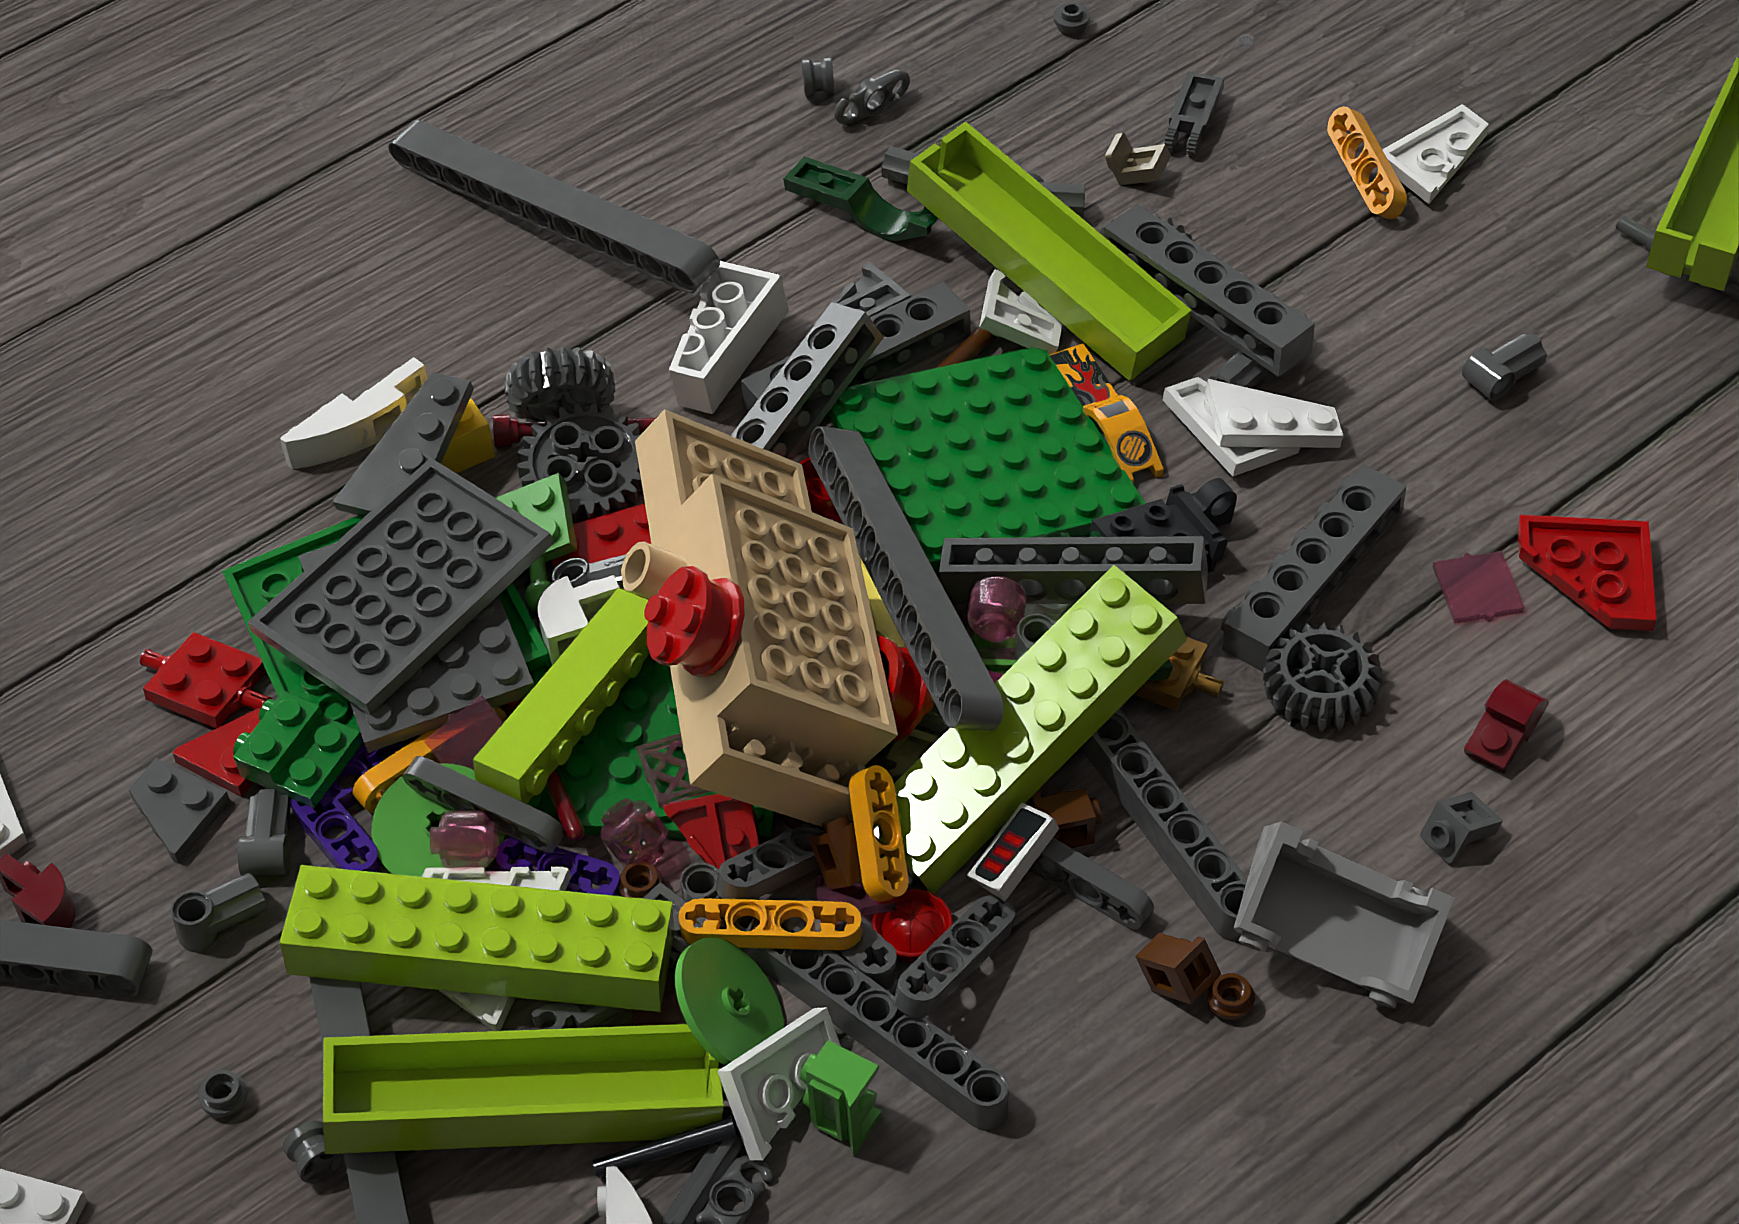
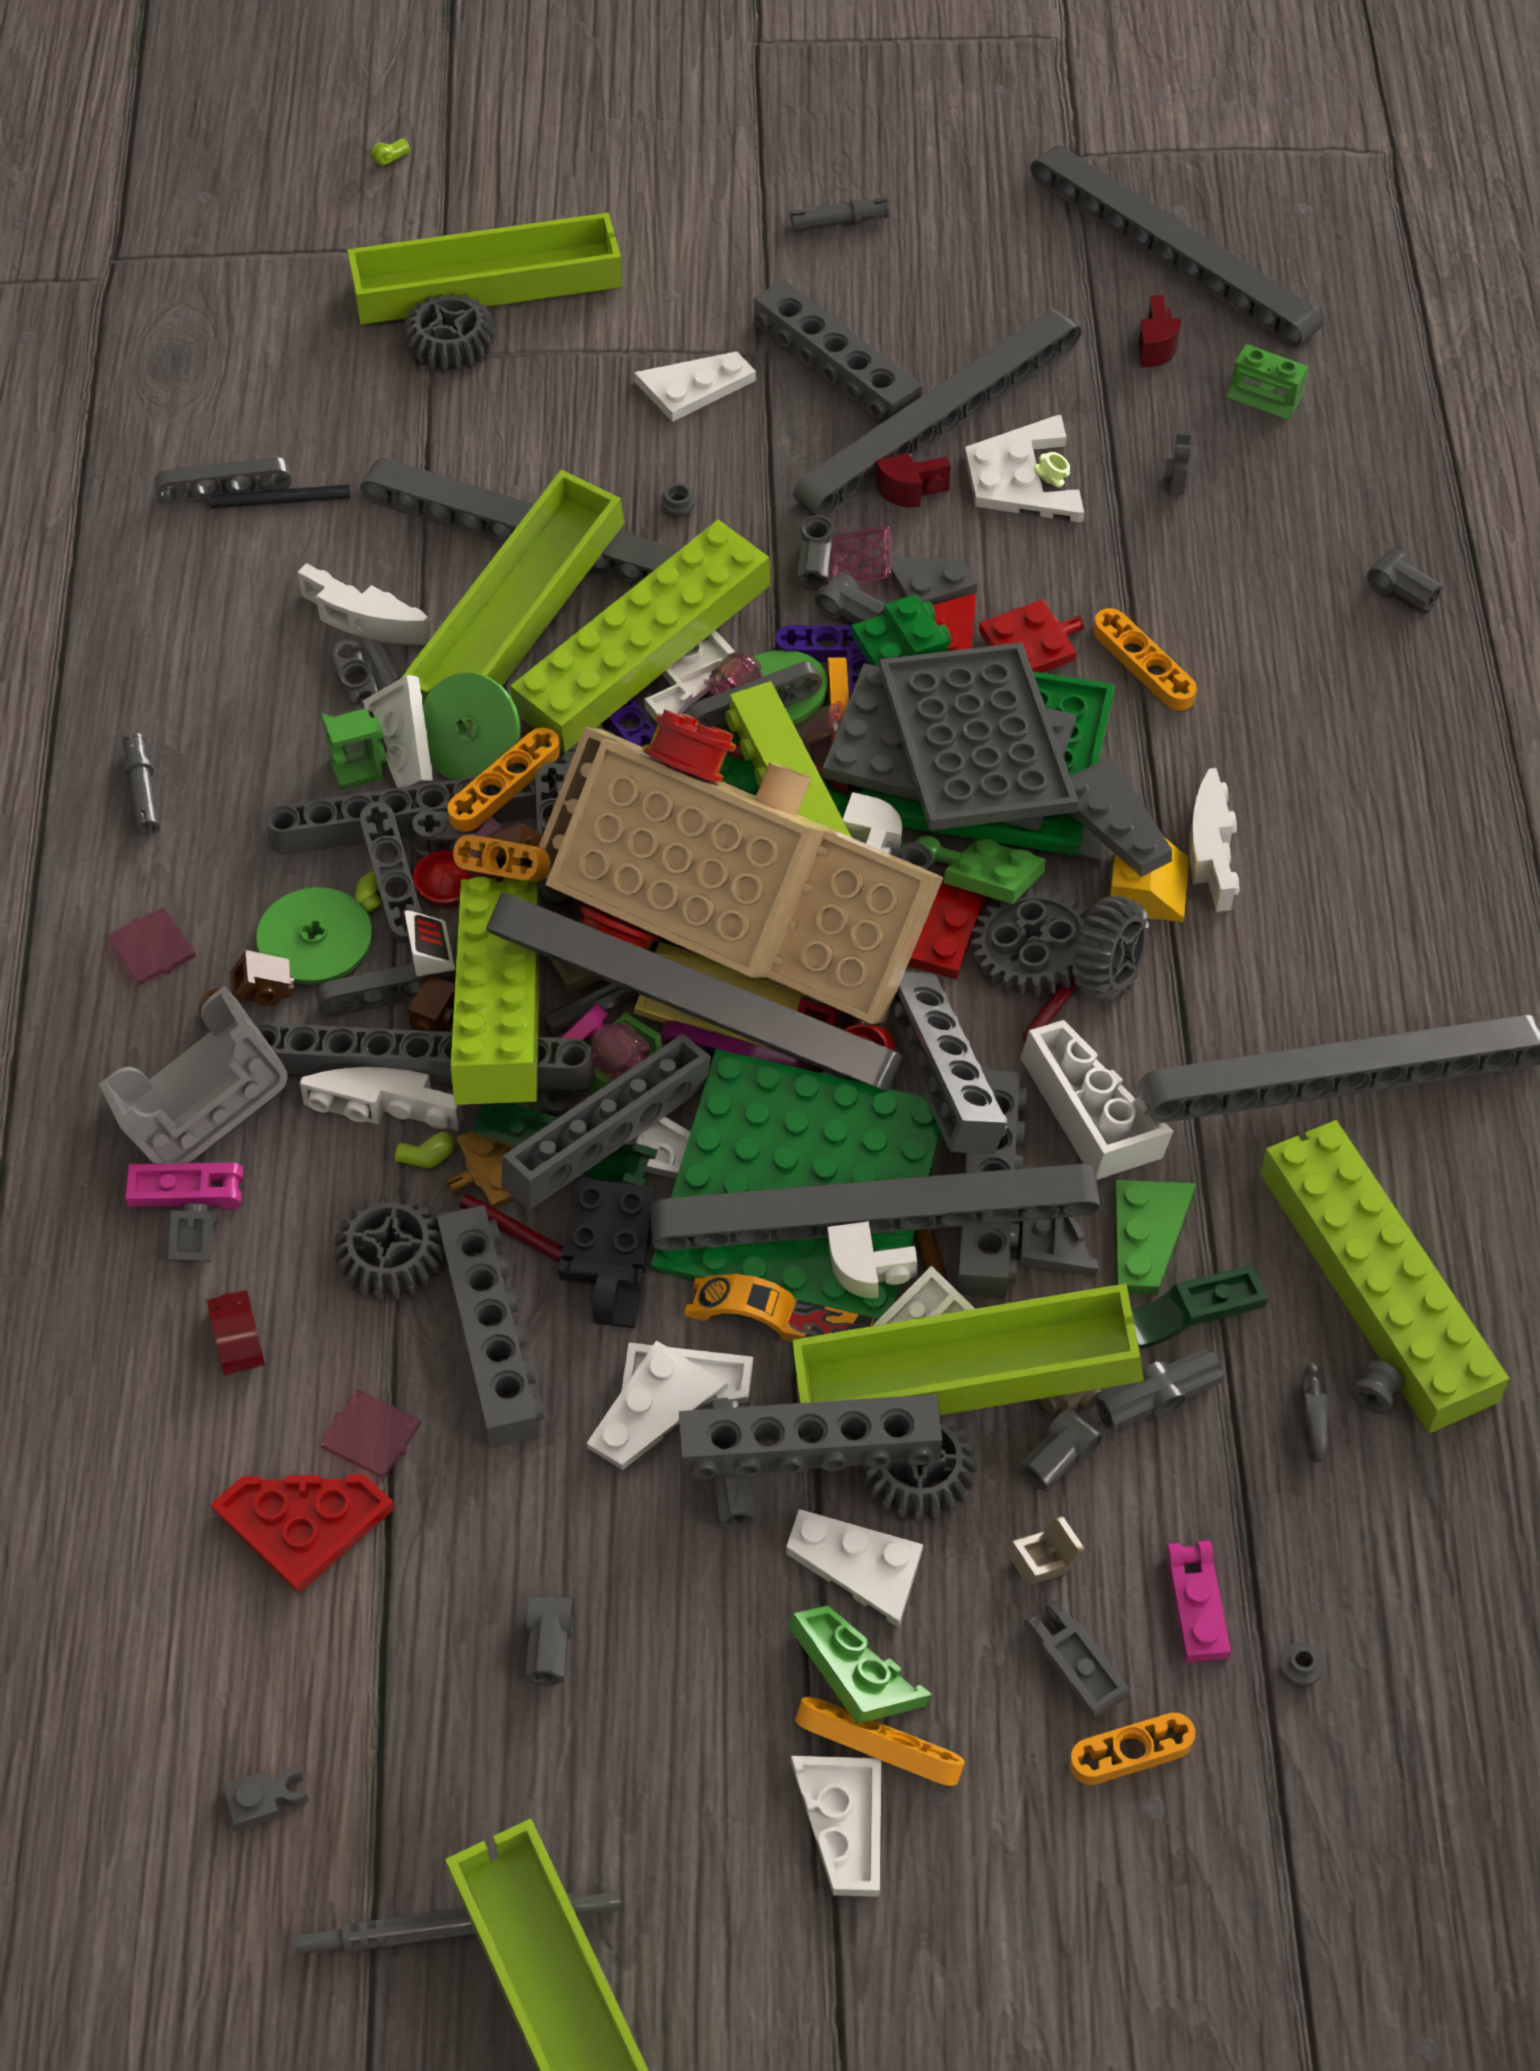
camera: 125 degrees right, 5 degrees up
(152, 584) = (1149, 656): none -> light orange beam
(171, 850) = (861, 535): none -> clear pink window
(717, 116) = (1384, 1276): none -> lime piece
(808, 258) = (1147, 1229): none -> bright green wing
(978, 378) = (886, 1204): none -> dark grey beam
(983, 981) = (366, 892): none -> lime arm
(1020, 353) = (860, 1268): none -> white brick
(1063, 1016) = (334, 952): none -> bright green piece
(1081, 85) = (1198, 1603): none -> dark pink plate
(1204, 790) = (370, 1091): none -> white slope
(1207, 724) = (427, 1154): none -> lime arm
(1212, 637) = (517, 1230): none -> dark red bar
(1219, 1120) = (151, 946): none -> clear pink piece
(1244, 70) = (1158, 1726): none -> light orange beam
(1248, 246) = (861, 1560): none -> white wing
(1332, 201) = (856, 1675): none -> bright green wing
(1426, 867) = (184, 1183): none -> dark pink plate

